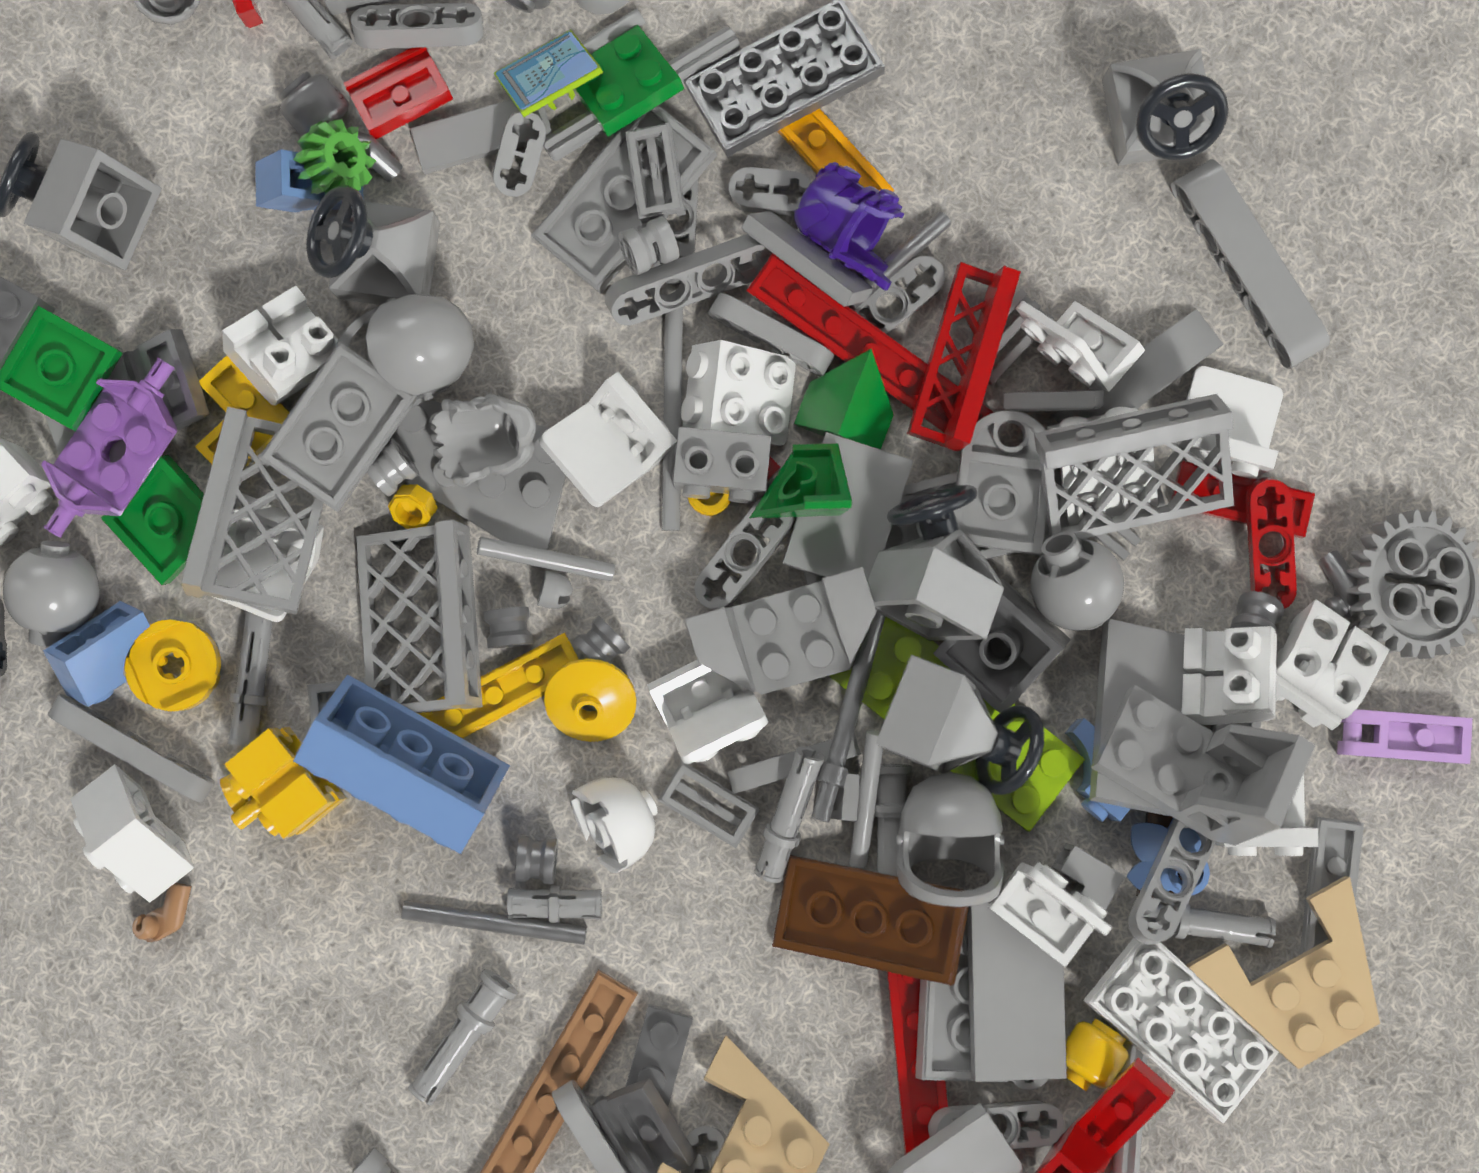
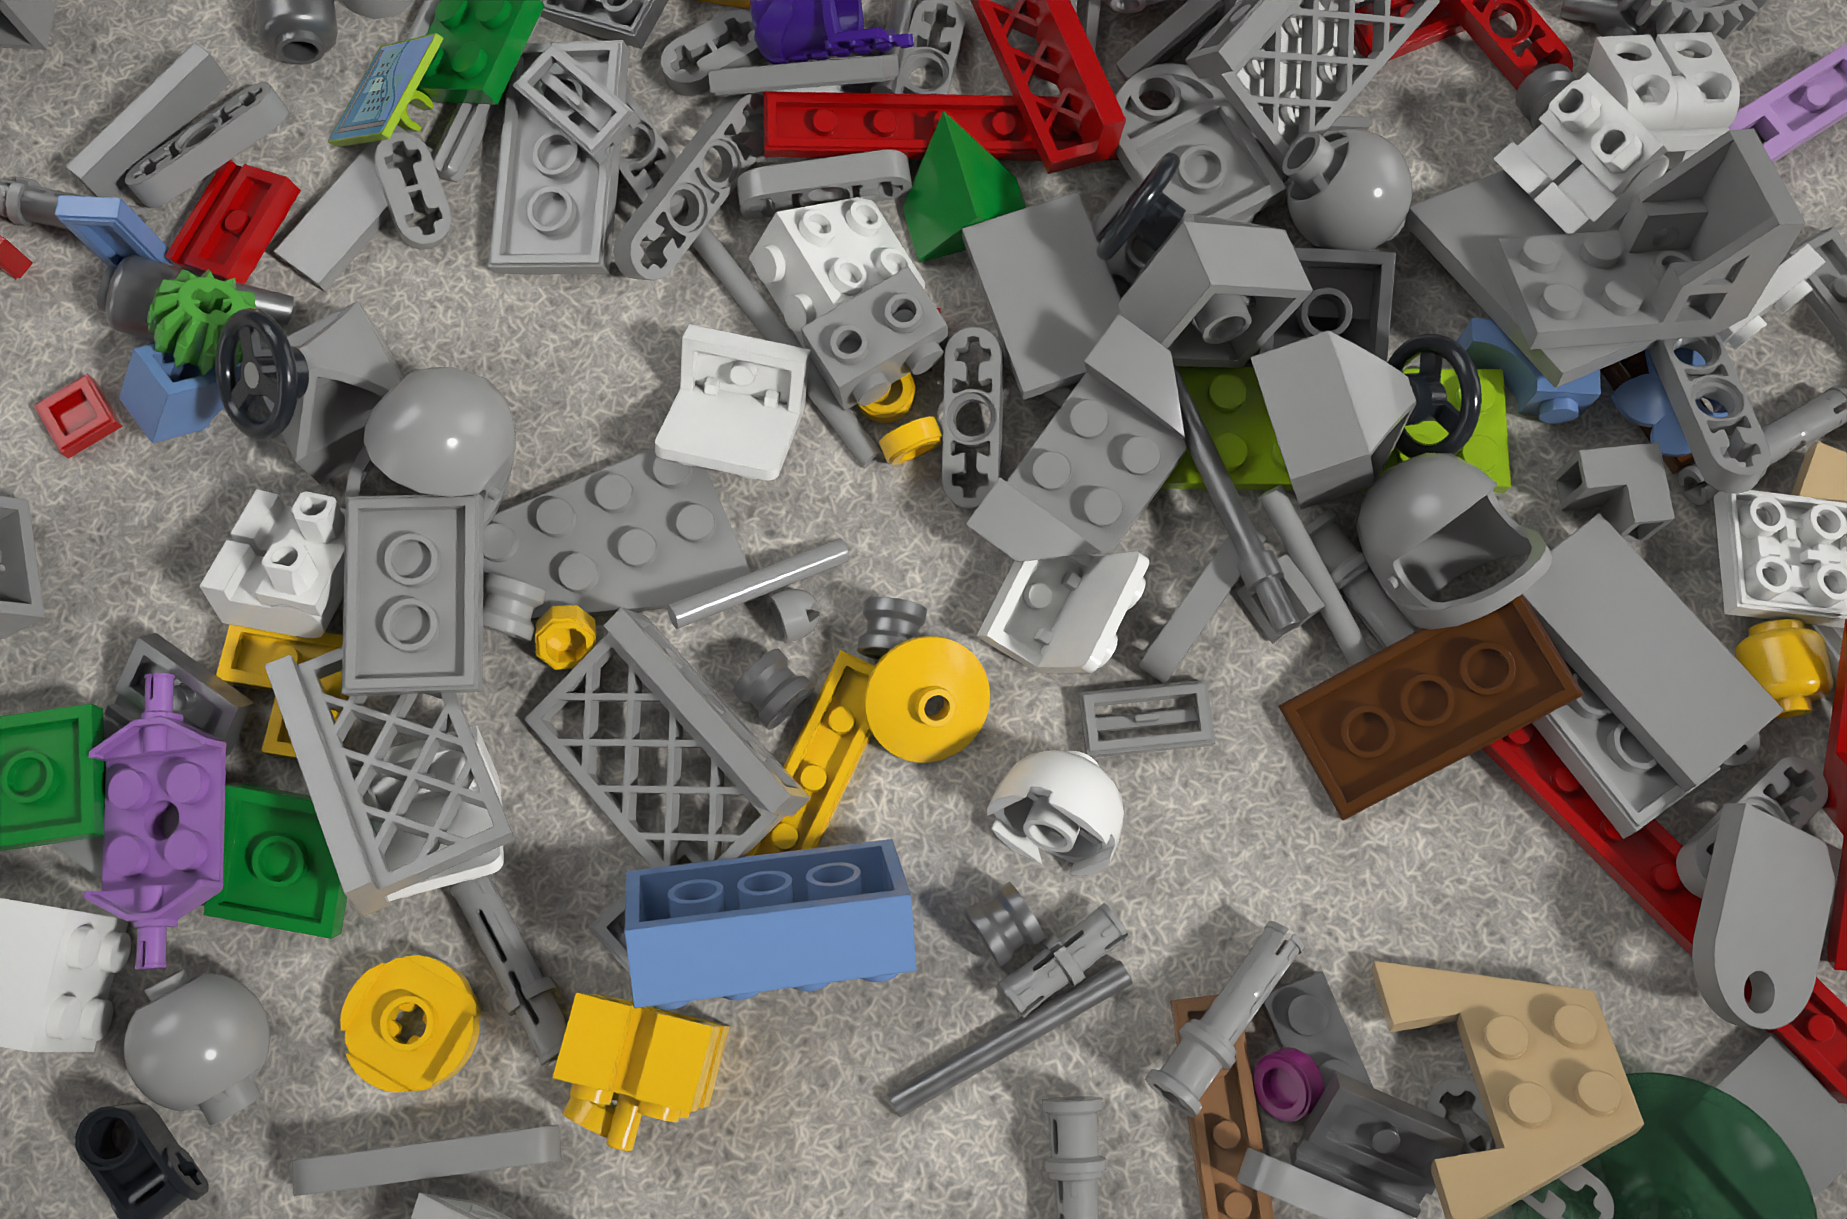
camera: 30 degrees left, 10 degrees down
(93, 656) = (304, 1082): medium blue arch -> none
(225, 149) = (77, 416): none -> red tile
(319, 54) = (109, 228): none -> medium blue tile
(482, 437) = (588, 491): light grey hair -> none
(595, 1009) = (1209, 1042): none -> light grey pin
(623, 1063) = (1287, 1084): none -> magenta tile
(648, 245) = (624, 174): light grey wheel -> none
(699, 538) = (911, 440): none -> yellow tile
(783, 831) = (1254, 679): light grey pin -> none
(808, 485) = (992, 286): green slope -> none
(1047, 914) = (1623, 523): white bracket -> none

